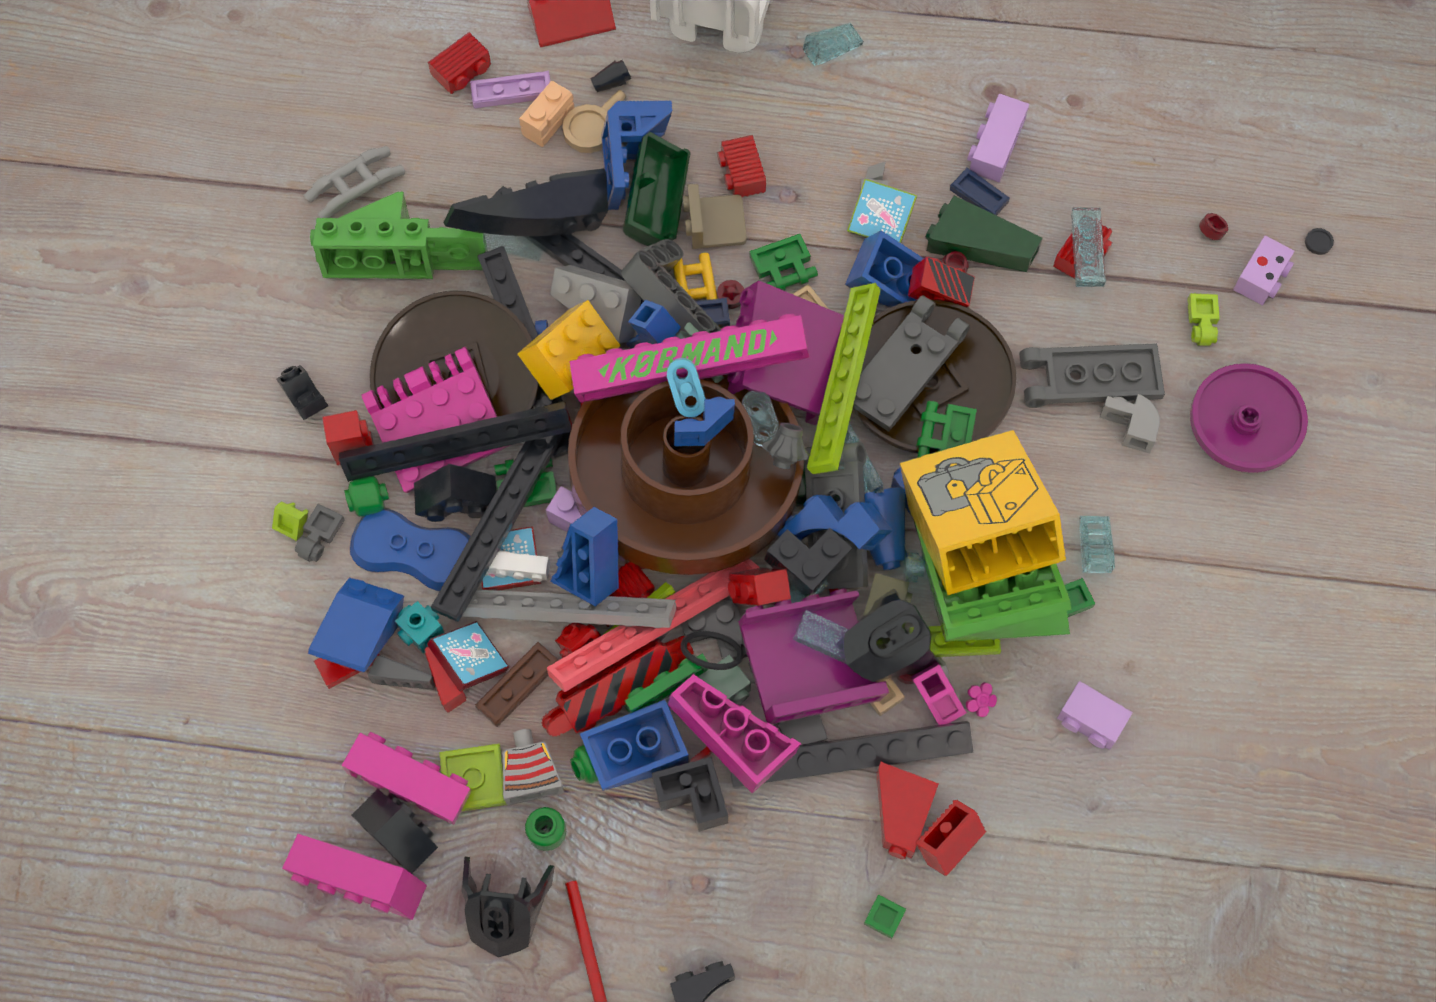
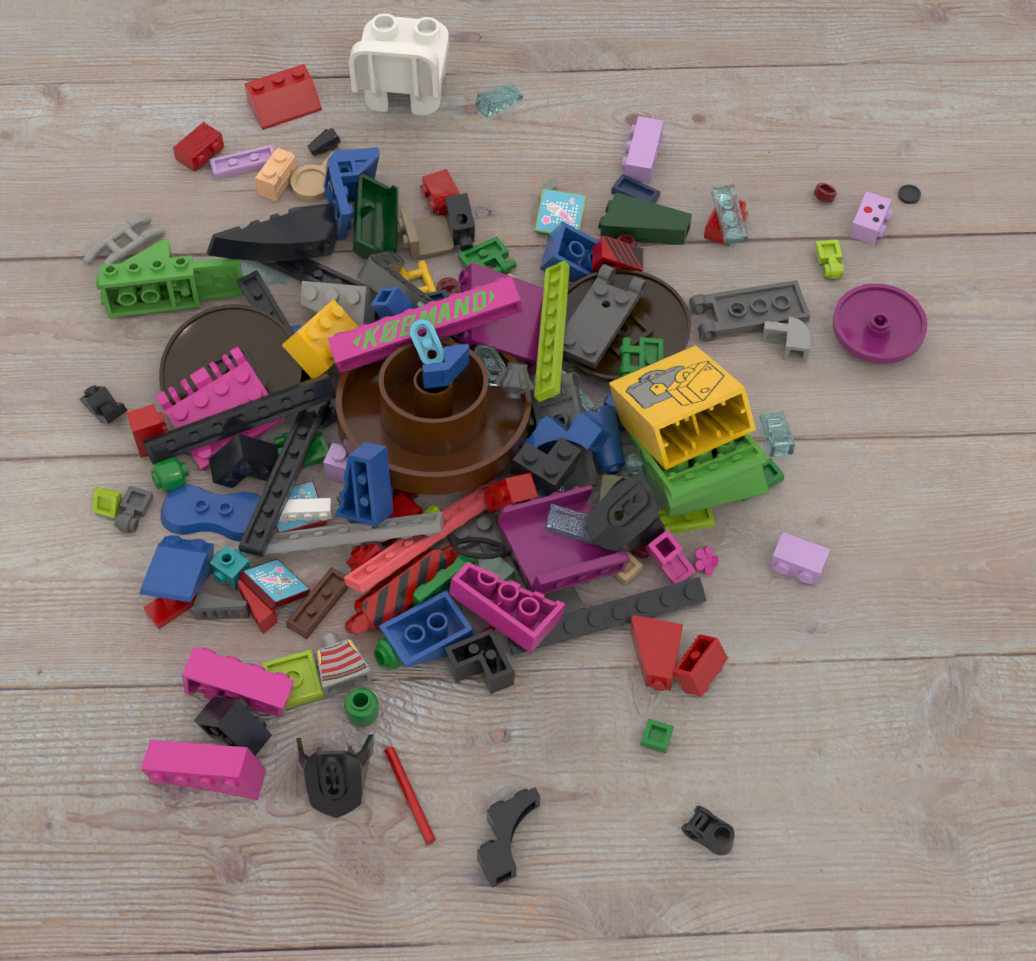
camera: 10 degrees left, 10 degrees down
(758, 209) = (460, 220): none -> black torso

